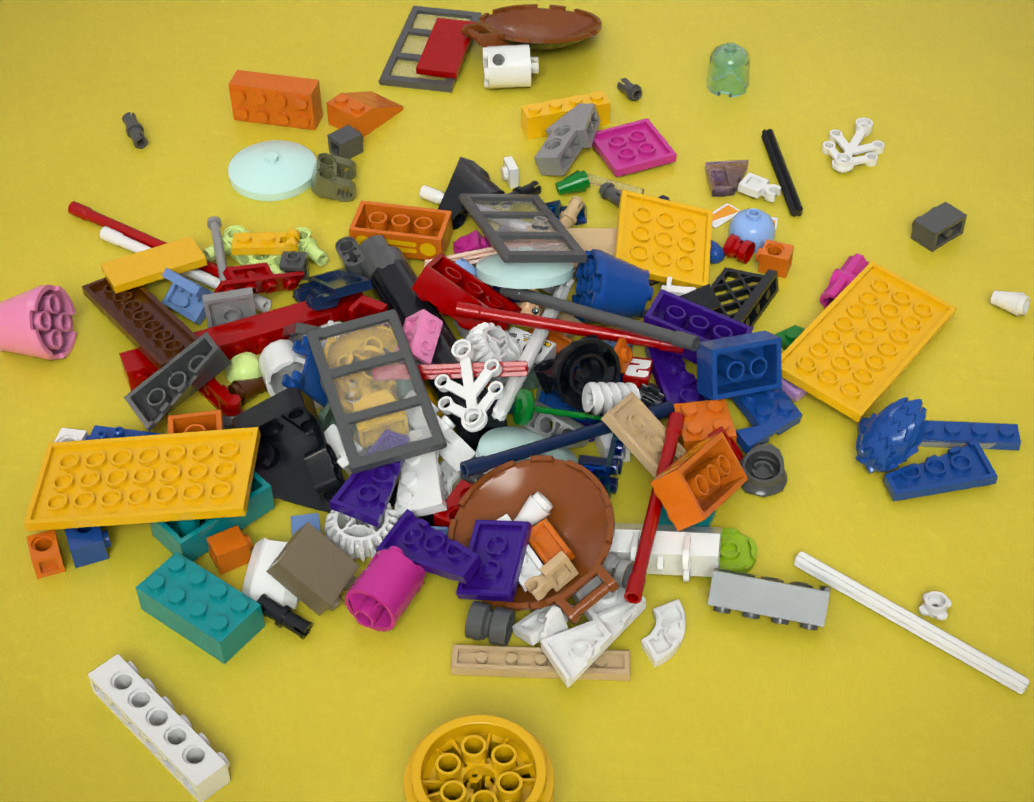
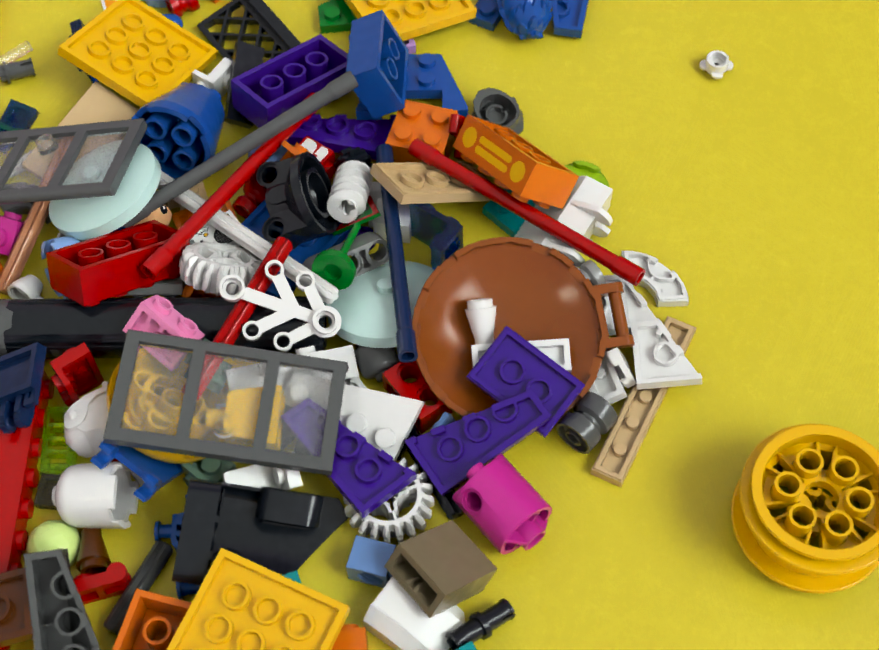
camera: 65 degrees left, 15 degrees up
(297, 331) = (67, 452): dark grey plate -> none
(547, 542) = (533, 323): orange tile -> none
(555, 575) = (577, 329): tan plate -> none
(570, 214) = (23, 114): tan pin -> none
(769, 598) = (661, 174): wedge -> none
(913, 623) = (720, 92): white axle -> none

